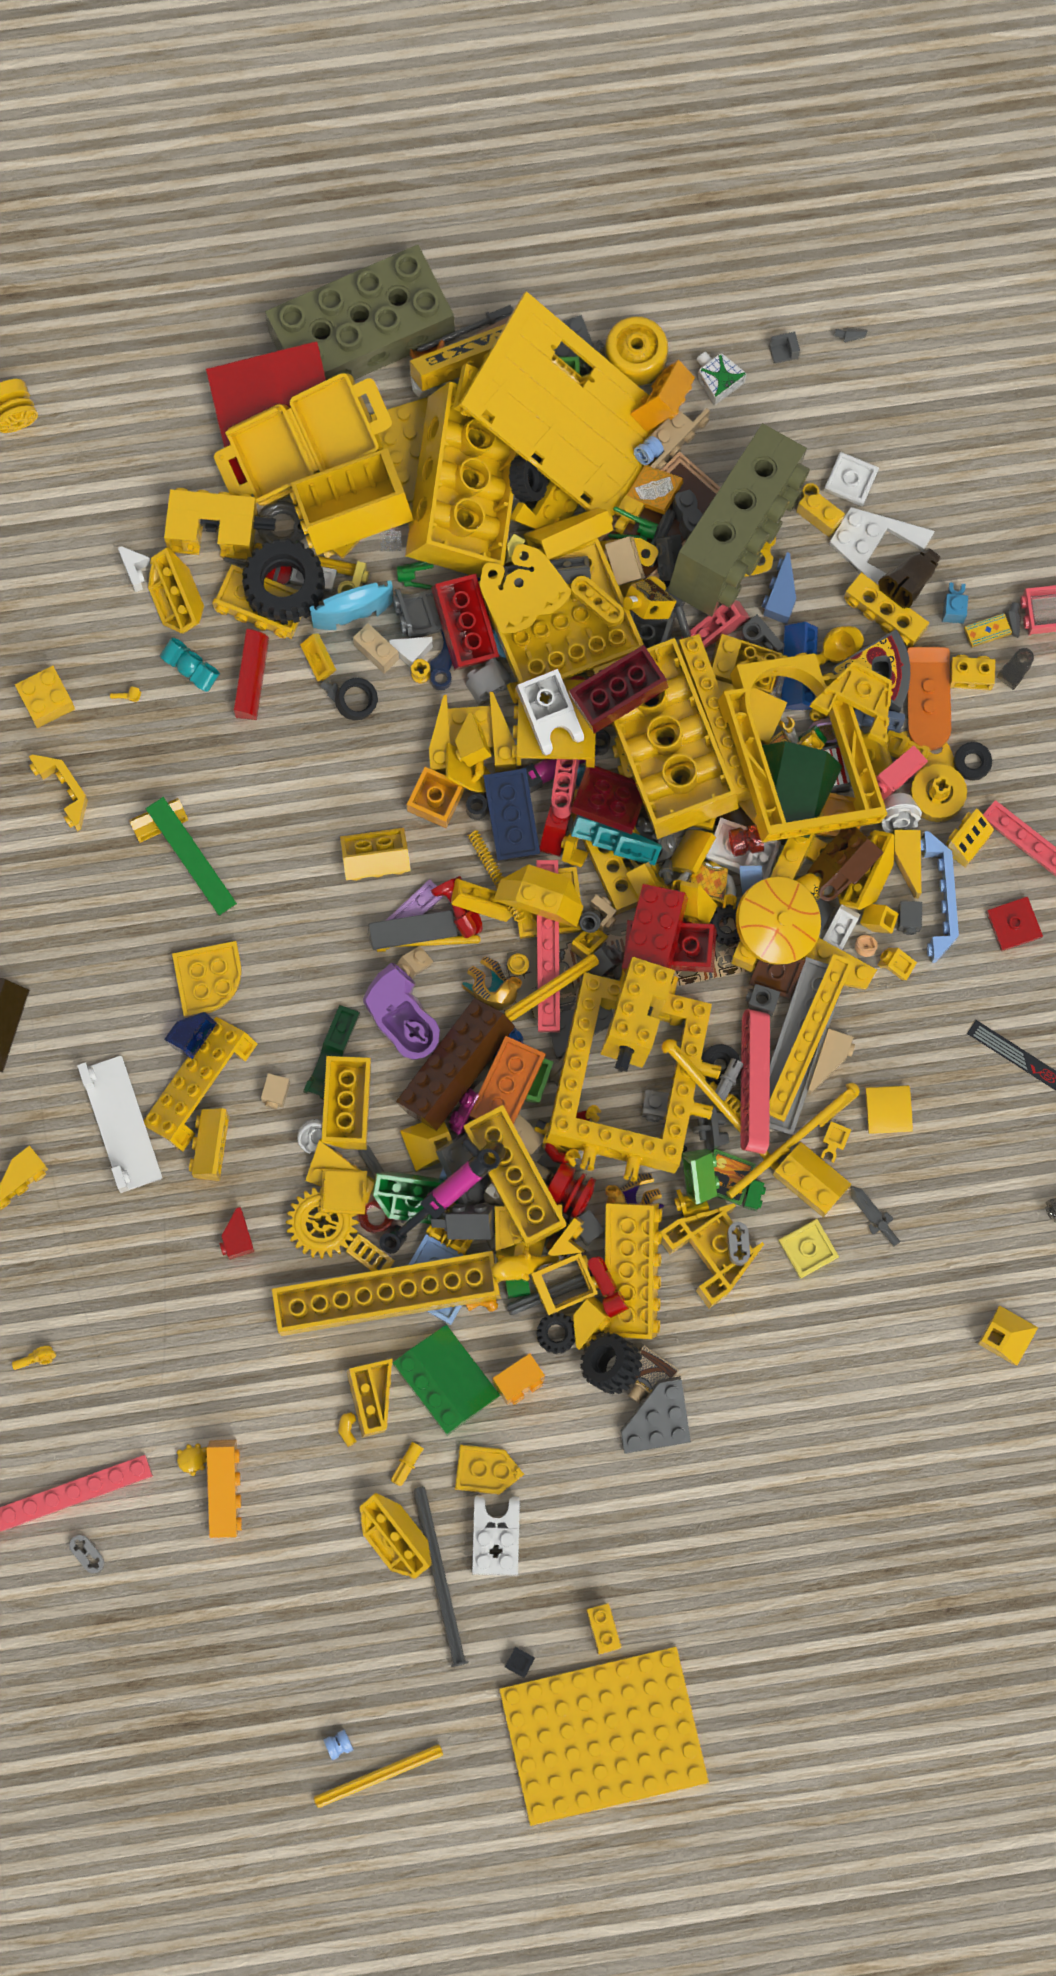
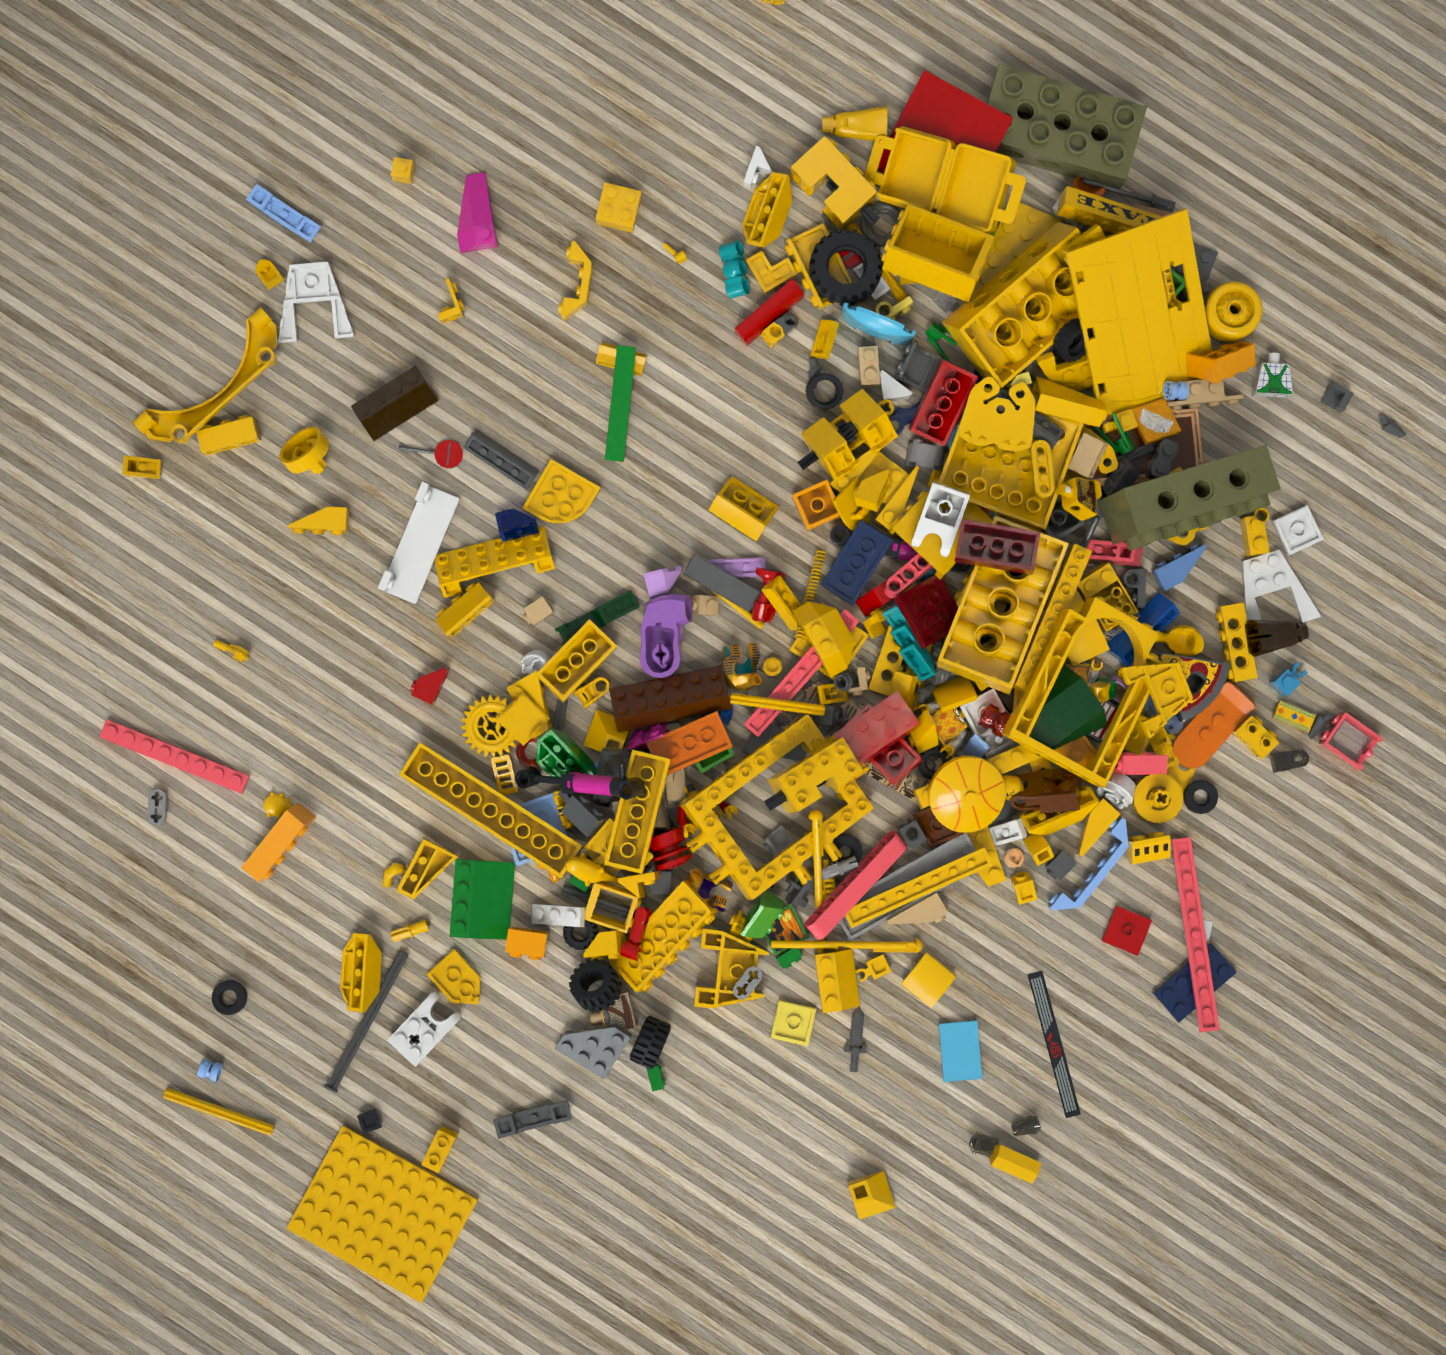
camera: 40 degrees right, 10 degrees up
(76, 1027) = (447, 453): none -> red piece
(128, 992) = (501, 459): none -> dark grey slope
(188, 461) = (858, 124): none -> yellow piece
(224, 646) = (768, 276): none -> yellow plate
(272, 682) = (779, 329): none -> leg
(284, 1665) = (217, 1000): none -> black tyre
(358, 973) = (661, 581): none -> lavender slope
(383, 1119) = (592, 692): none -> yellow piece
(403, 731) = (832, 442): none -> yellow piece
(524, 1333) = (558, 915): none -> white plate
(660, 1530) = (532, 1118): none -> dark grey slope
(702, 1370) = (650, 1042): none -> black tyre
(733, 1400) = (655, 1078): none -> green piece
(970, 1146) = (960, 1051): none -> medium azure tile

